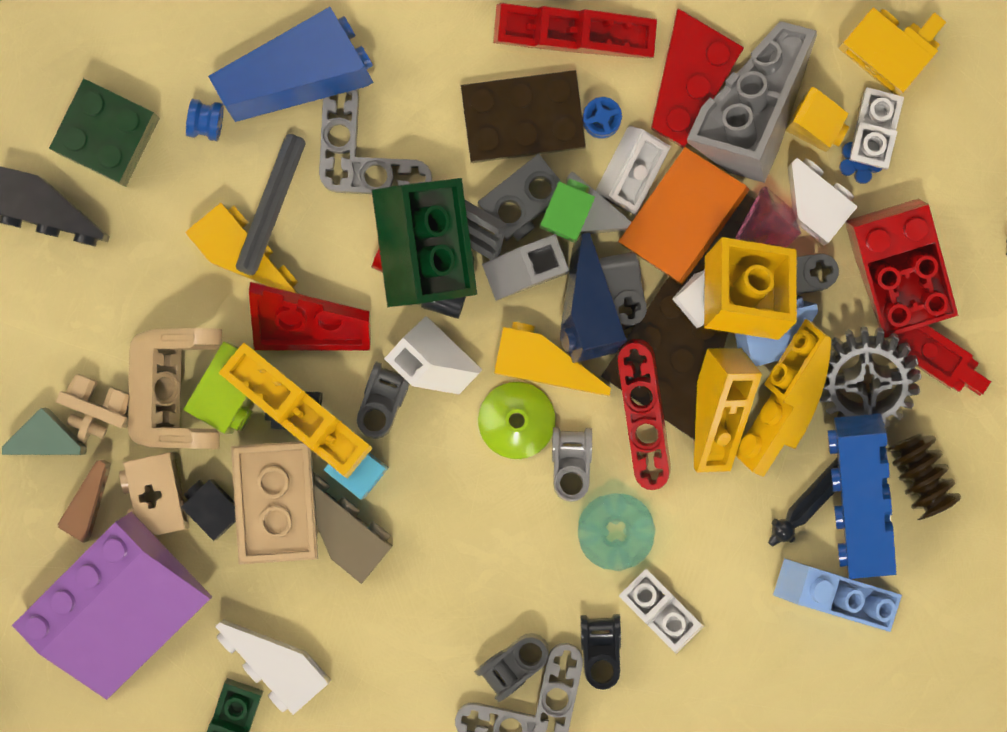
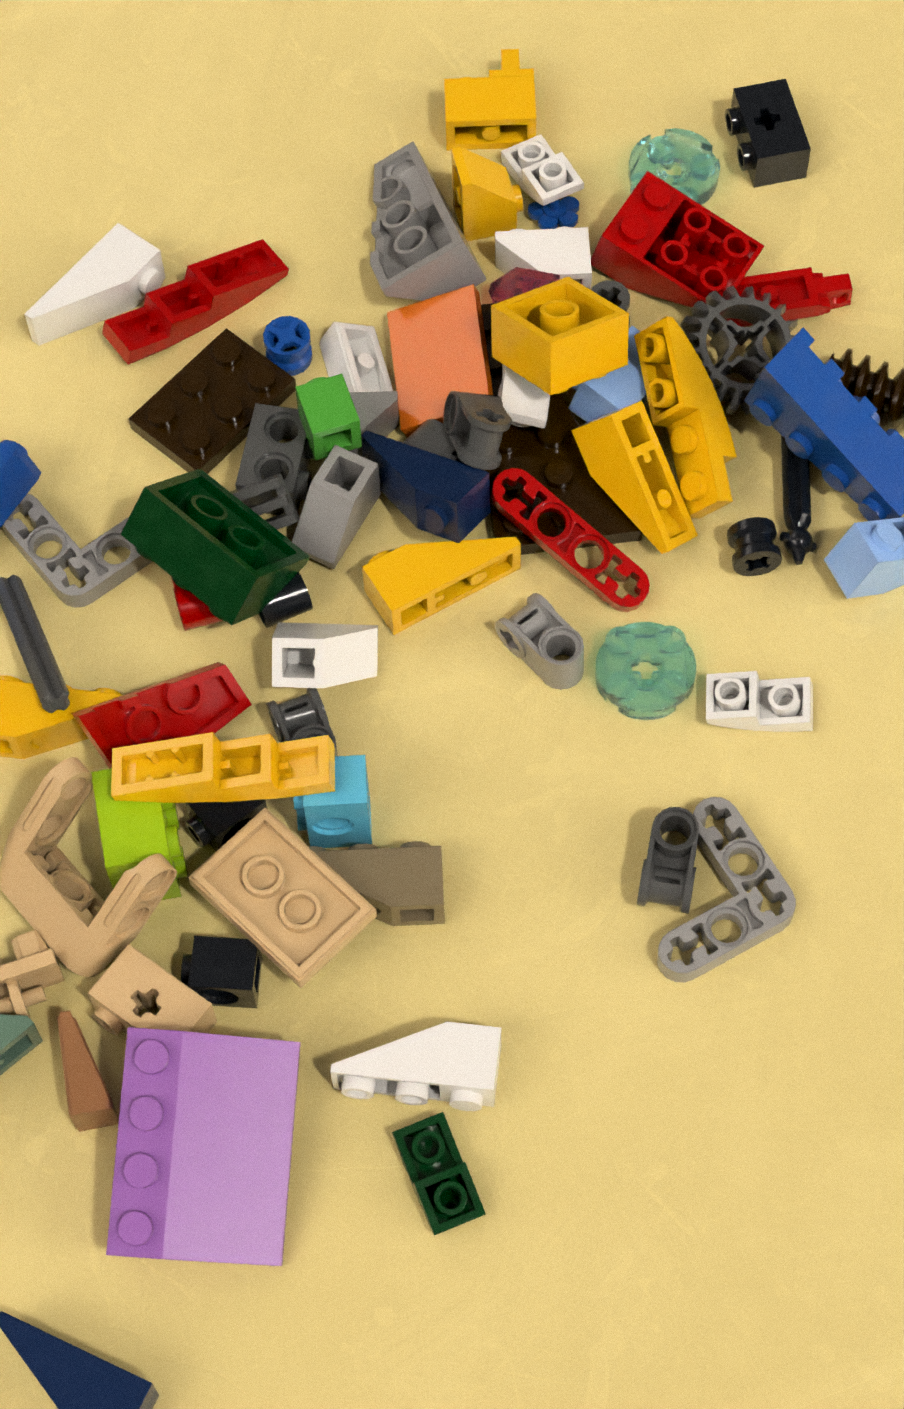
camera: 40 degrees left, 25 degrees down
(511, 441) = (454, 674): lime dish -> none
(601, 647) = (735, 772): black piece -> none
(649, 300) = (476, 427): none -> dark grey piece
(692, 74) = (335, 253): red wing -> none
(751, 513) = (754, 546): none -> black wheel
(970, 181) = (680, 148): none -> clear light blue plate

